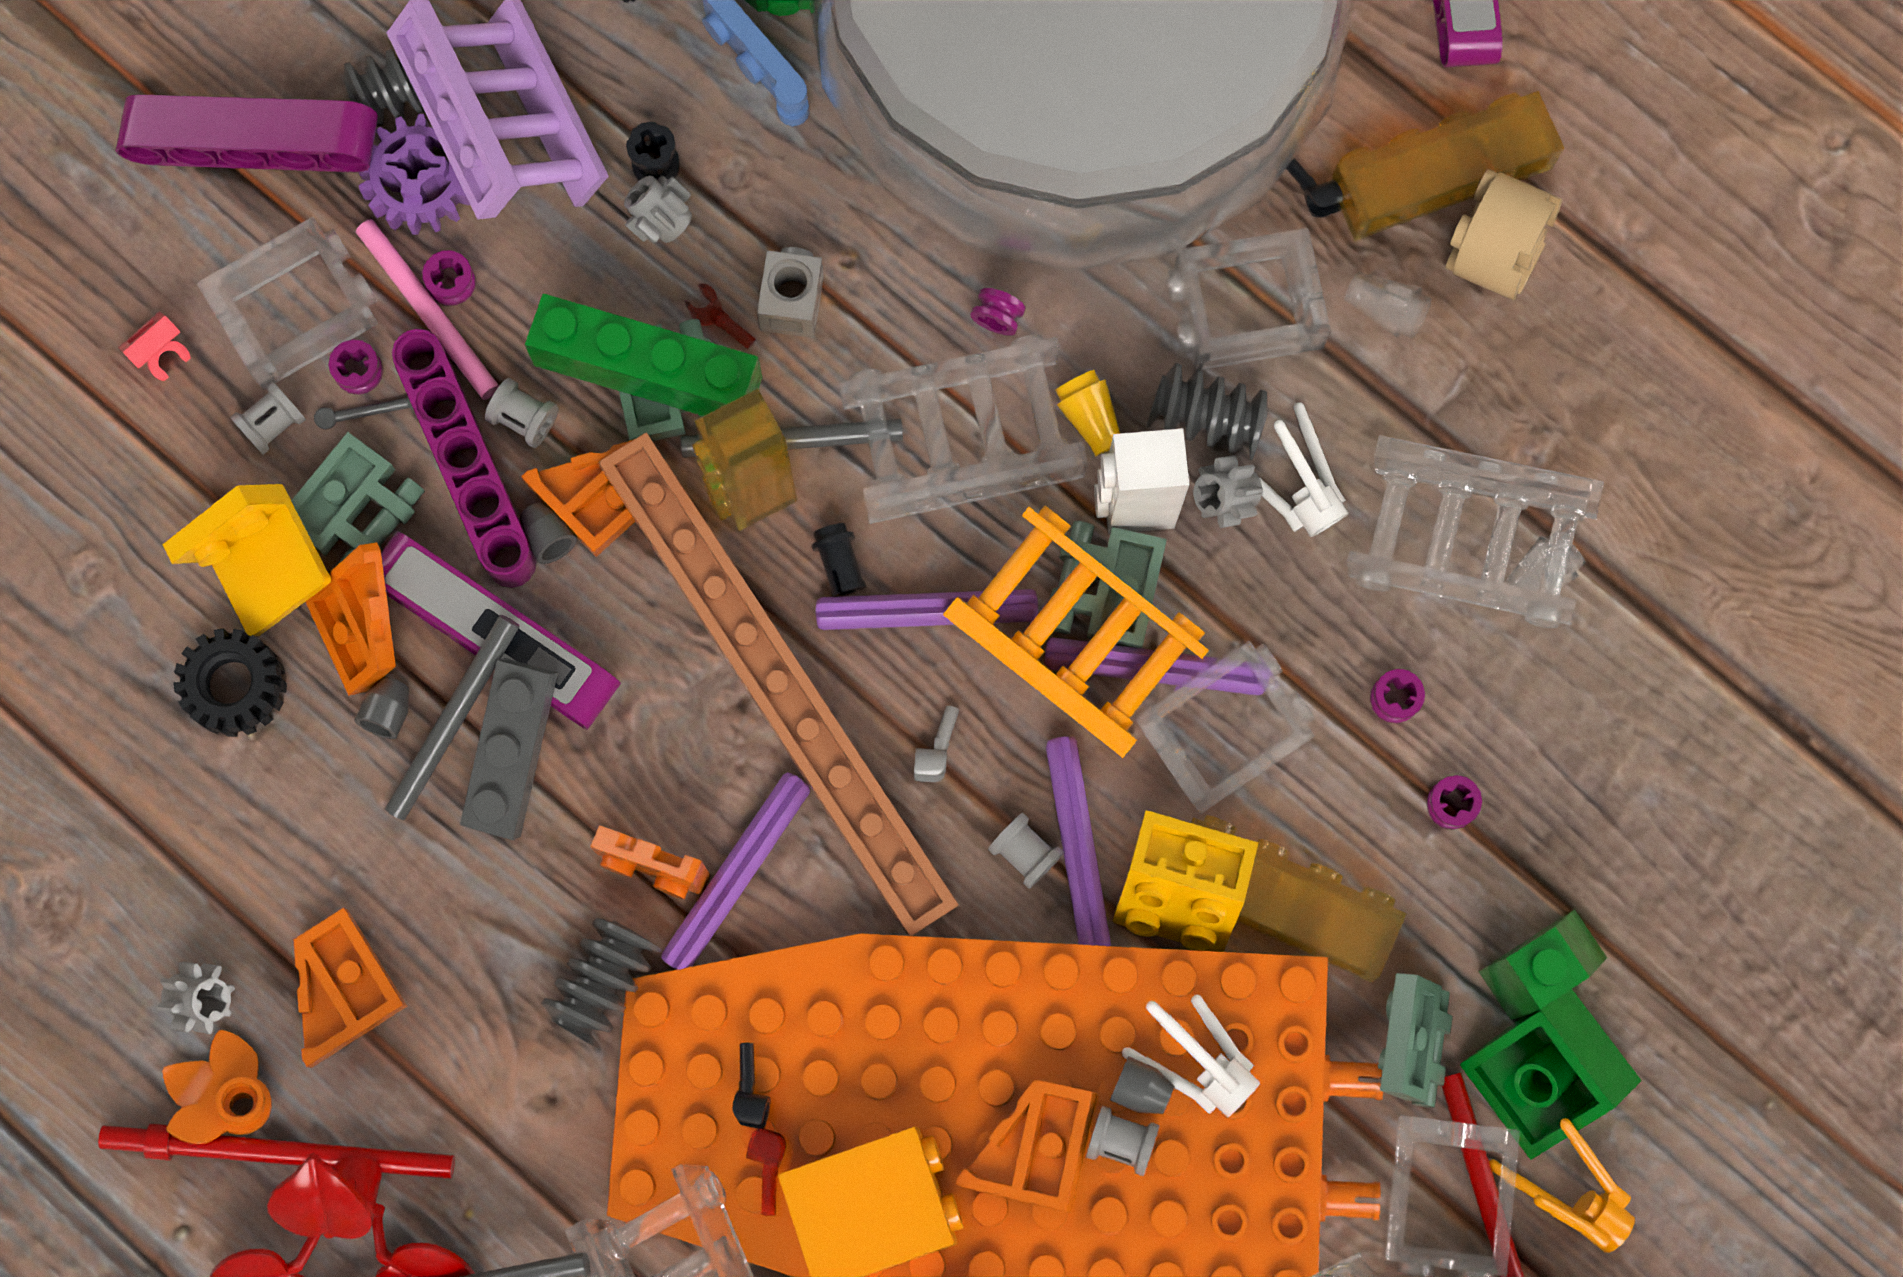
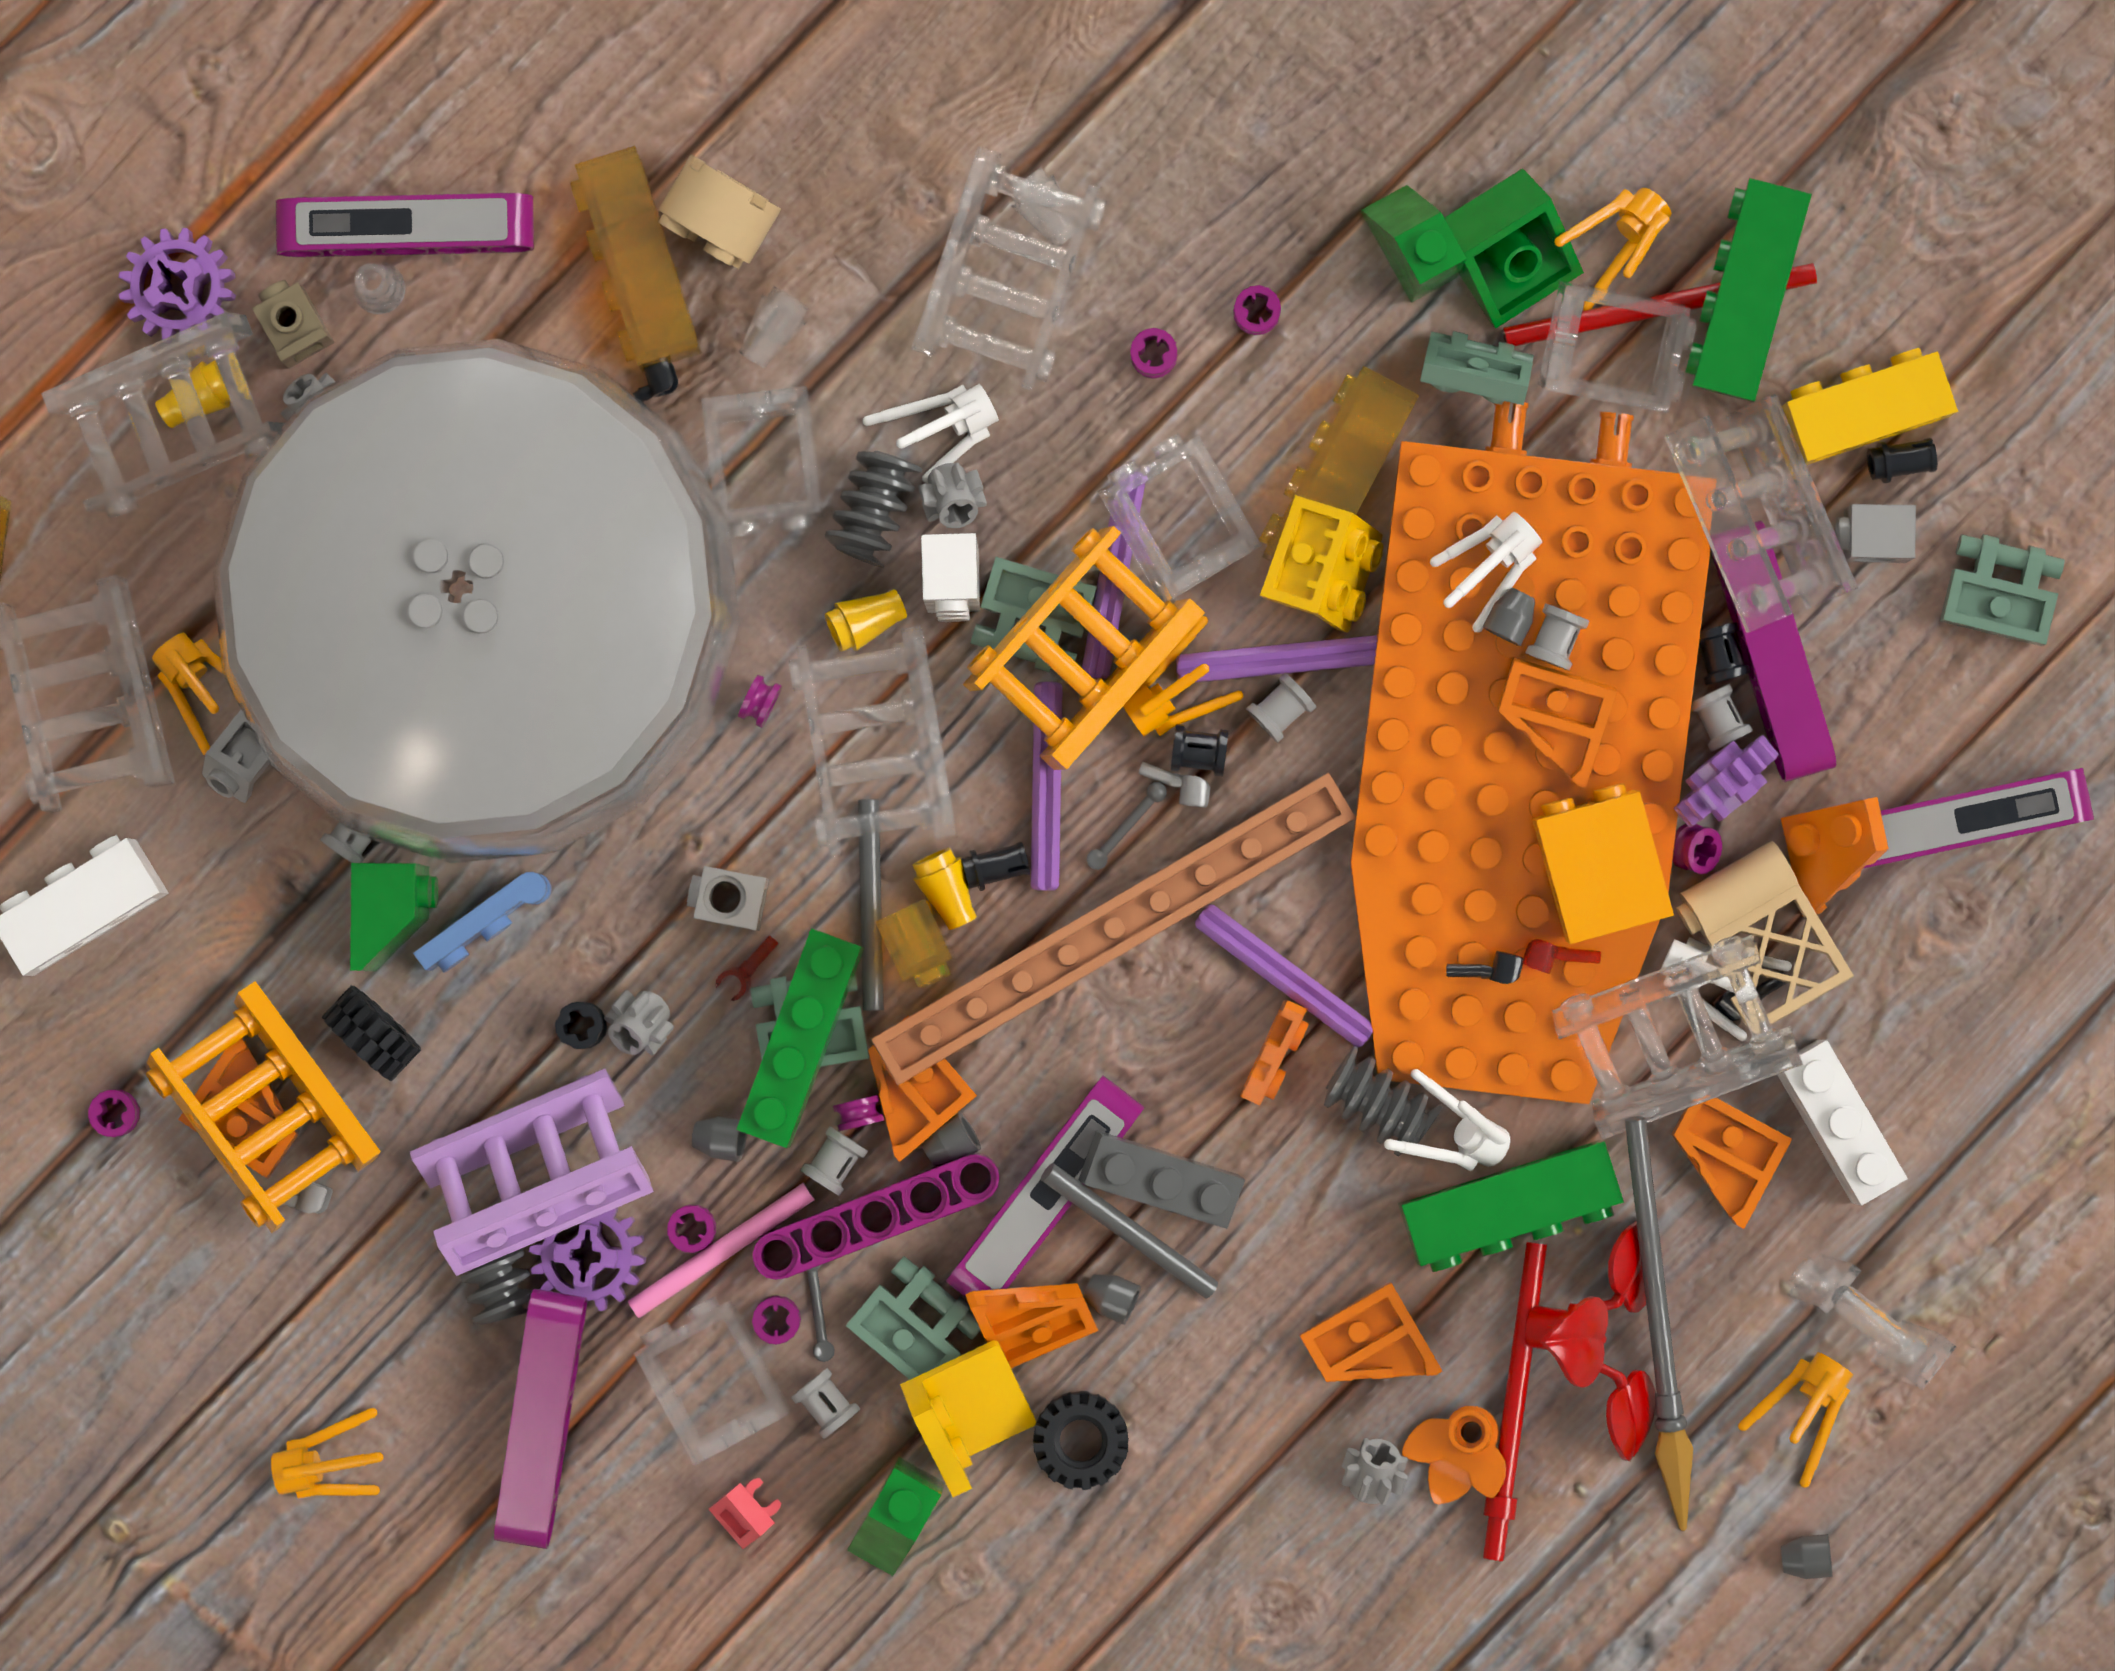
camera: 80 degrees left, 10 degrees up
(150, 491) = (896, 1516): none -> green slope
(492, 1134) = (1512, 1203): none -> green brick
(540, 282) = (719, 1138): none -> dark grey hose
(567, 1087) = (1475, 1135): none -> white plant
(572, 434) = (858, 1113): none -> magenta bush
(815, 507) = (945, 886): none -> yellow cone
(853, 669) = (1098, 858): none -> dark grey hinge
(974, 765) = (1199, 750): none -> black bush
(1021, 712) = (1151, 706): none -> light orange plant

